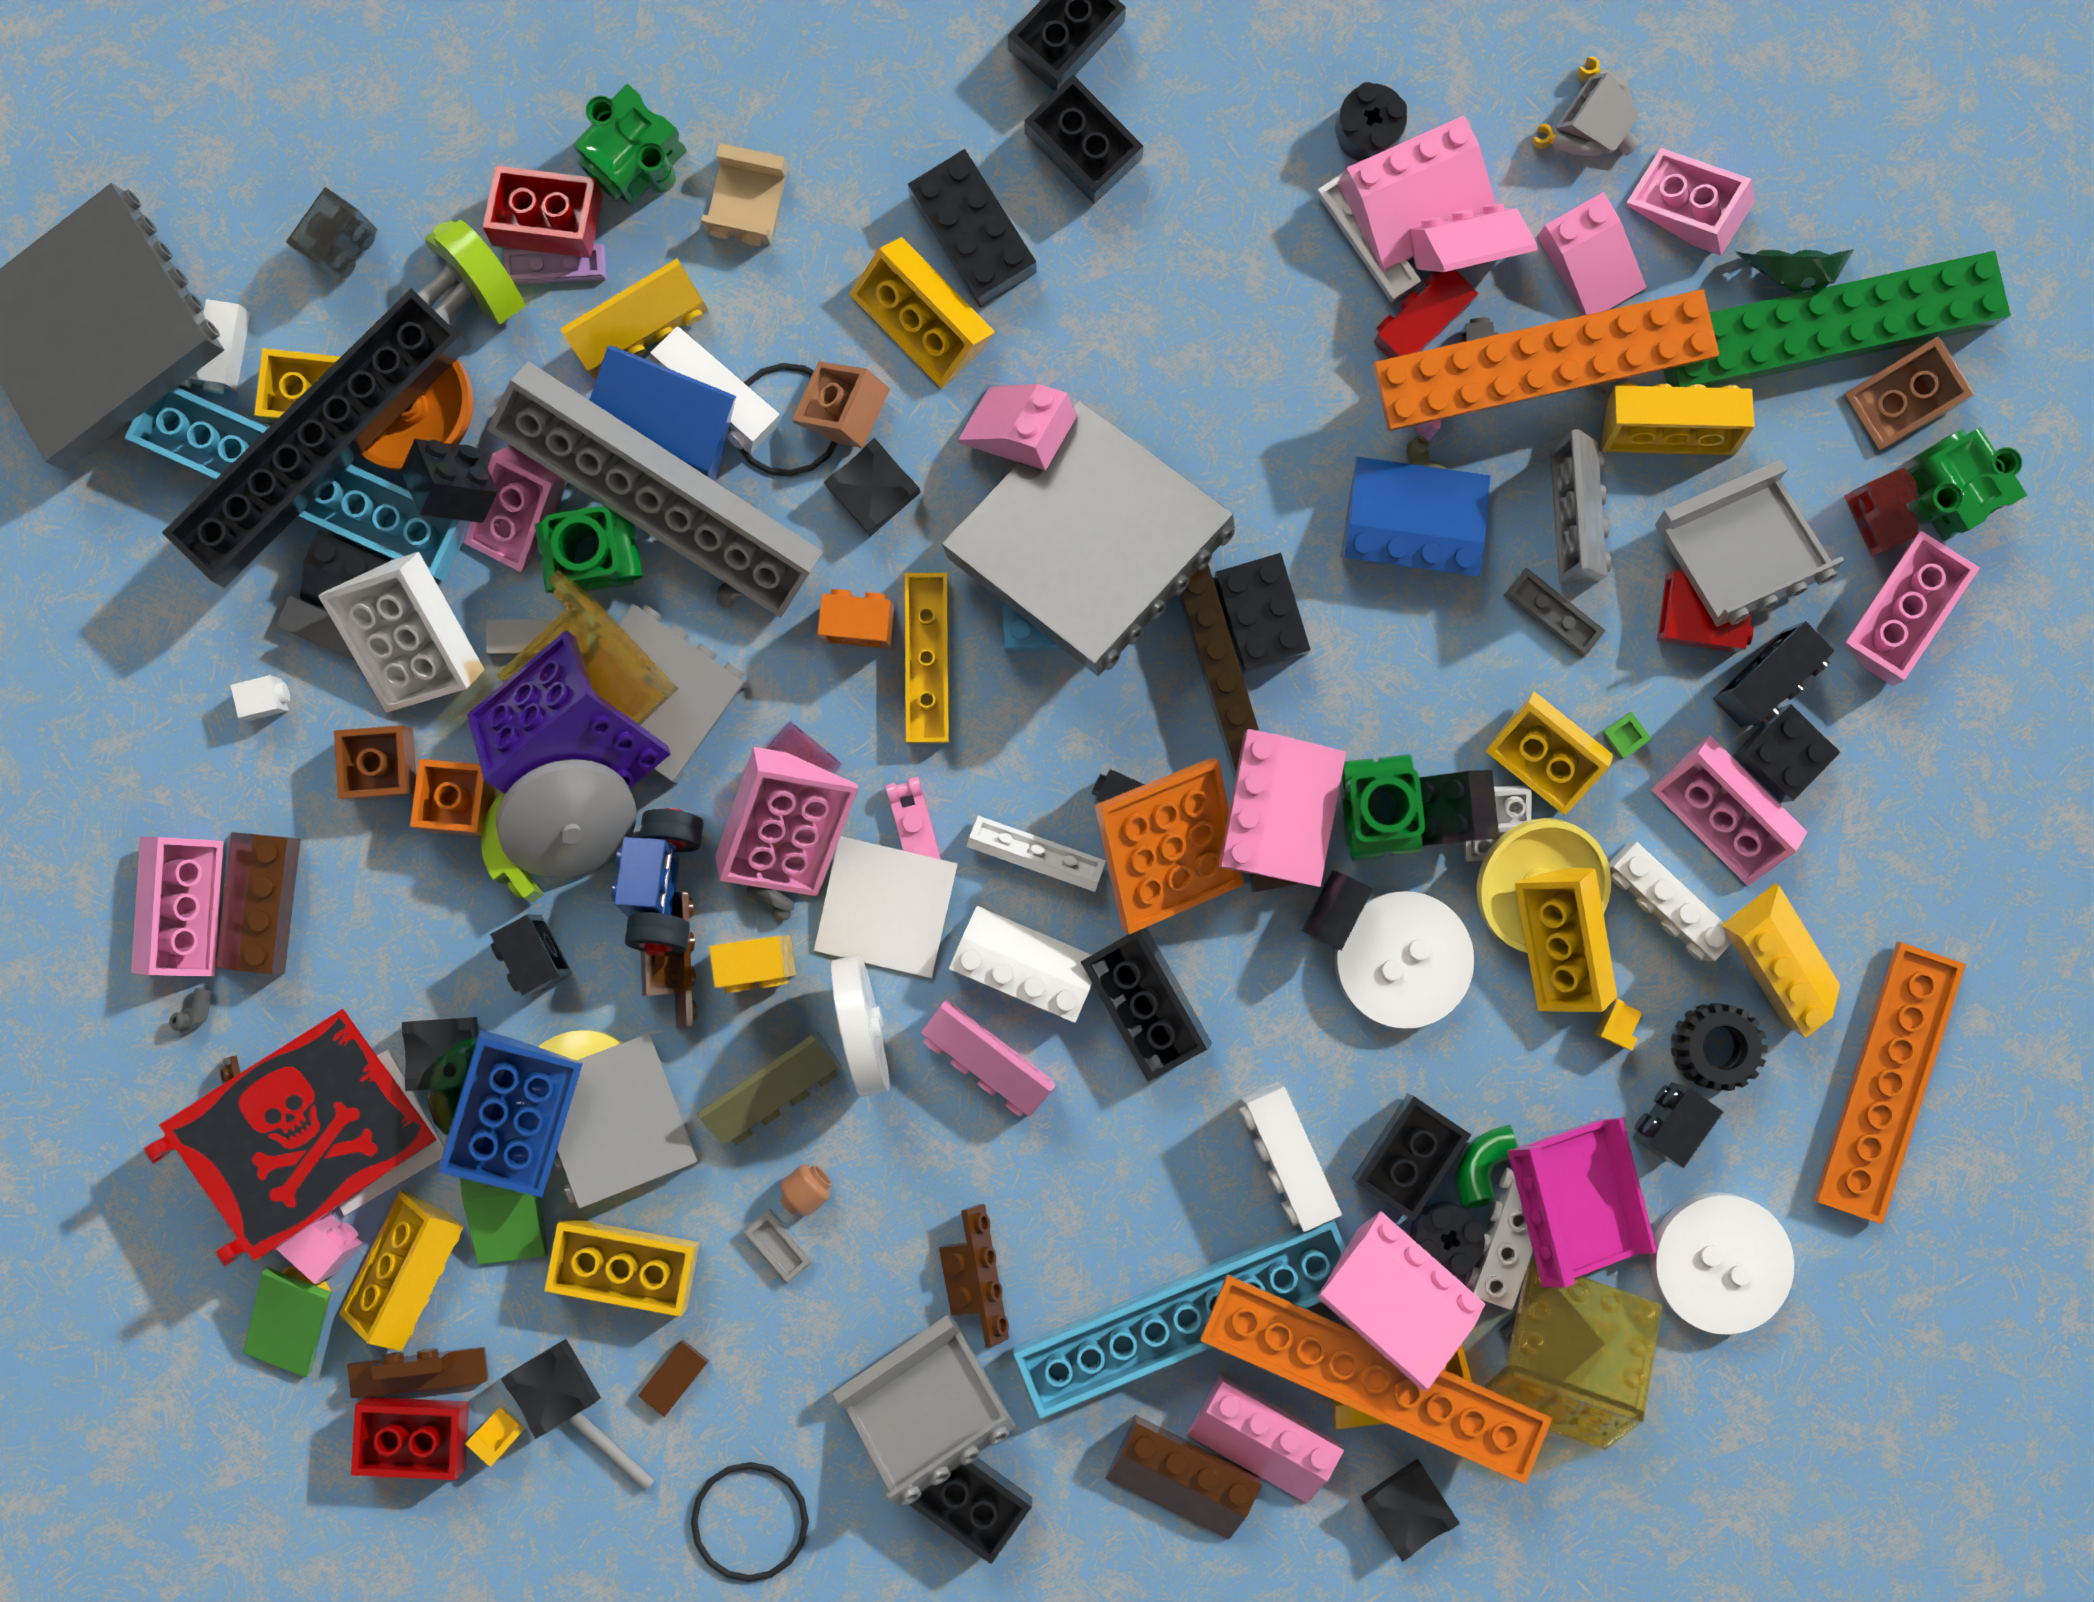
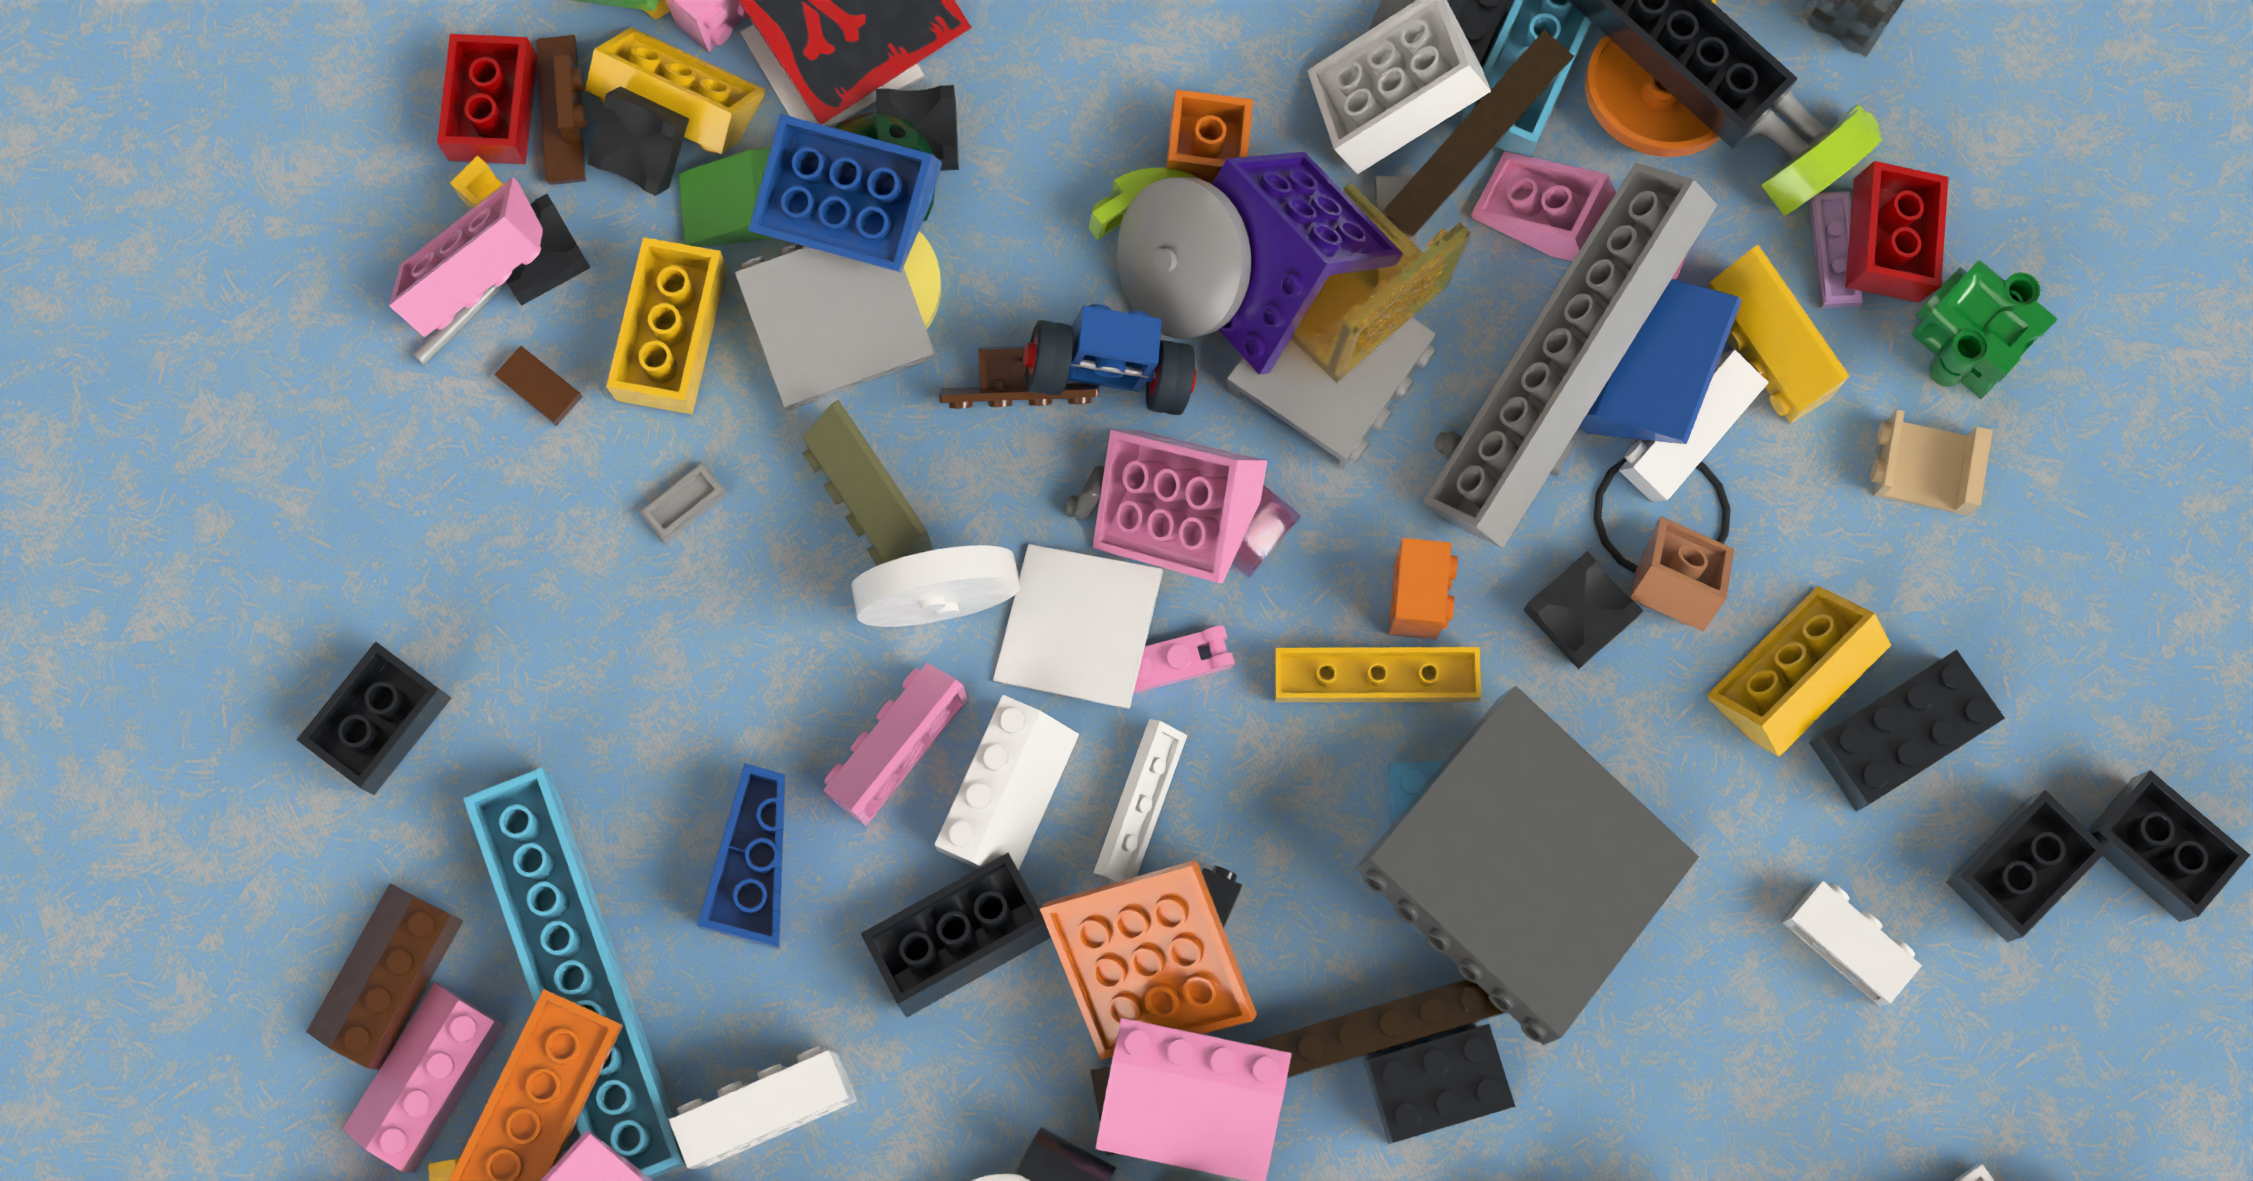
camera: 90 degrees right, 10 degrees down
(375, 762) = (1249, 54): dark orange brick -> none
(448, 481) = (1574, 126): black brick -> none
(451, 1300) = (638, 140): none -> black brick
(453, 563) = (1478, 133): none -> dark brown tile
(530, 955) = (1027, 222): black brick -> none
(563, 1446) = (467, 259): none -> bright pink slope
(615, 562) = (1496, 311): green piece -> none
(749, 961) = (1012, 466): yellow brick -> none
(803, 1531) = (336, 421): black piece -> none
(805, 1190) = (747, 531): nougat head -> none
(925, 1410) = (482, 665): light grey panel -> none
(973, 1276) = (637, 727): reddish brown bracket -> none
(1020, 423) = (1666, 785): bright pink slope -> none
(1092, 1176) = (747, 874): none -> blue wedge
(1144, 280) = (1852, 943): none -> white brick

